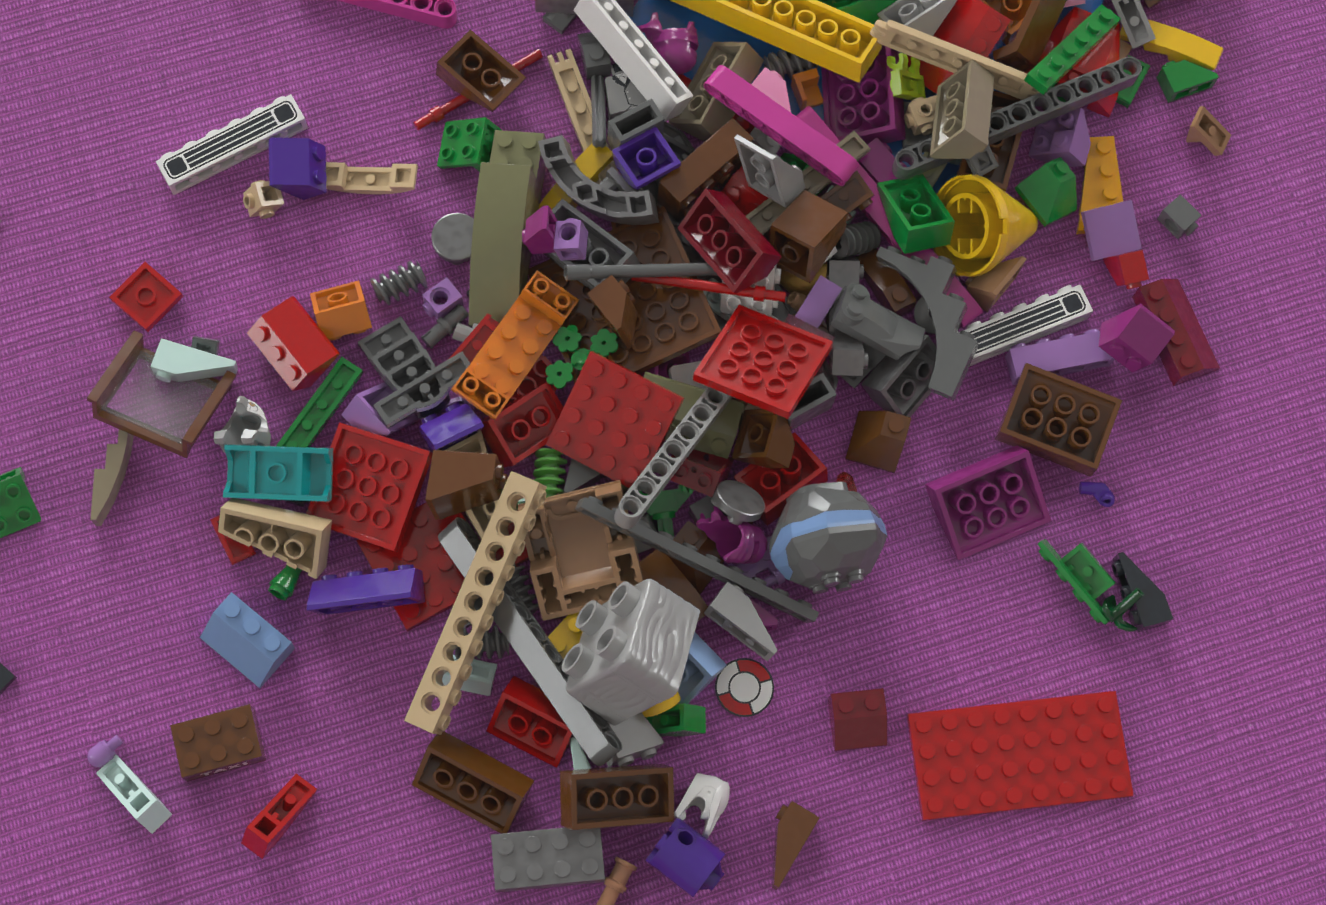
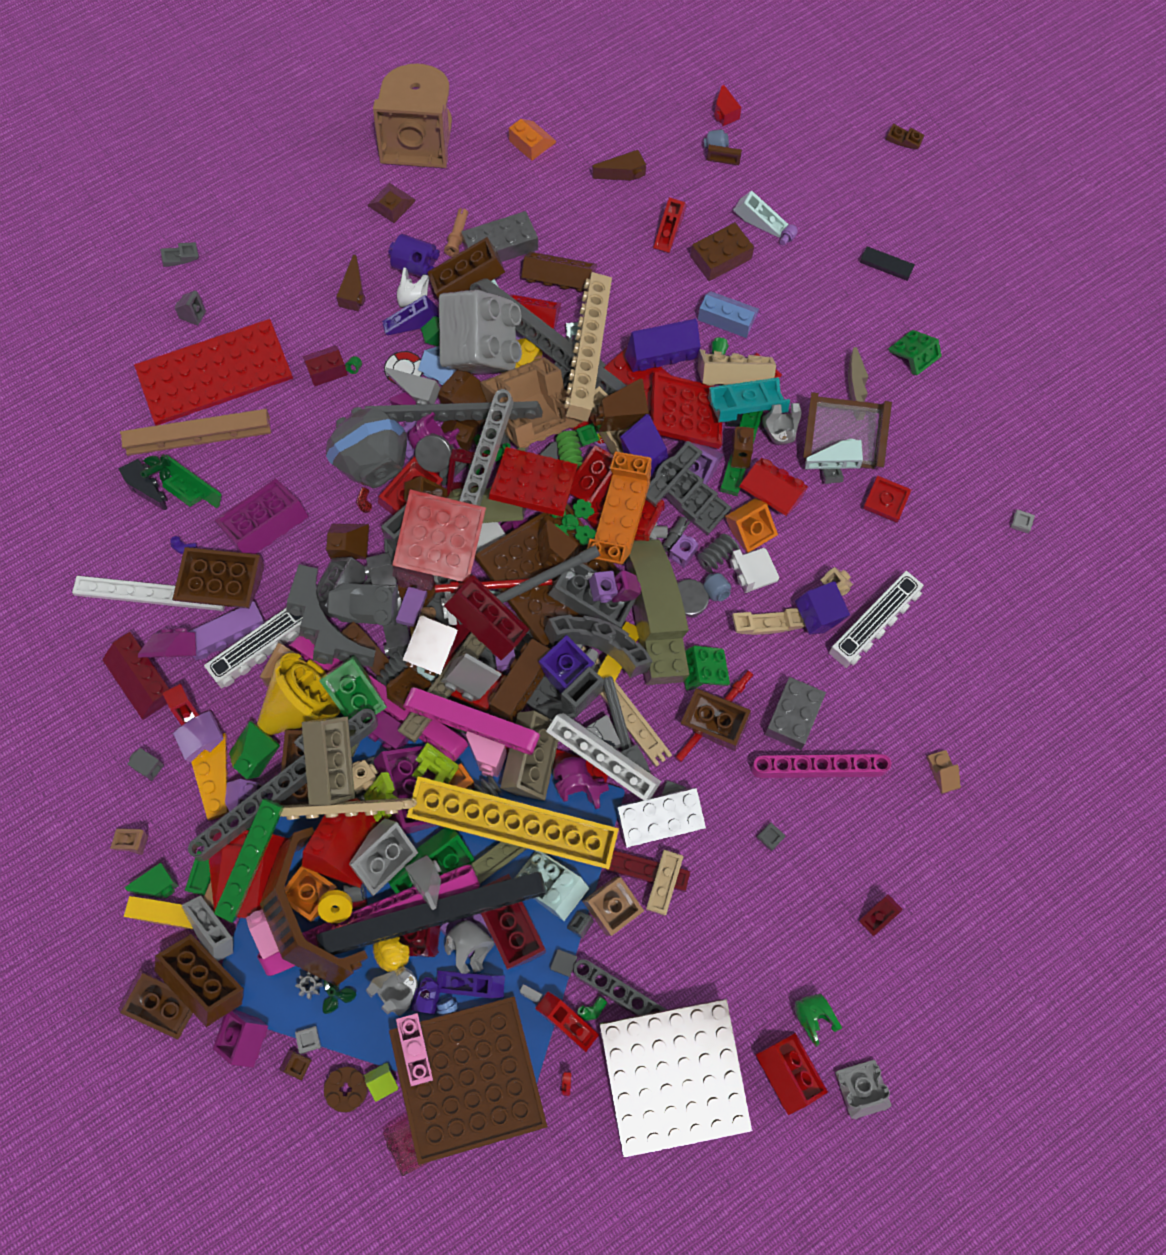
camera: 170 degrees right, 5 degrees down
(315, 407) = (742, 442): none -> reddish brown torso
(360, 250) = (754, 569): none -> white bracket
(381, 59) = (795, 713): none -> flat silver brick
(417, 239) = (717, 587): none -> sand blue head
(715, 759) = (411, 317): none -> dark purple slope
(815, 709) = (356, 361): none -> green piece
(835, 115) = (436, 762): none -> lime plate
(1041, 864) = (190, 308): none -> dark grey slope
(1058, 656) = (196, 432): none -> medium nougat tile
(1179, 452) = (132, 592): none -> white tile

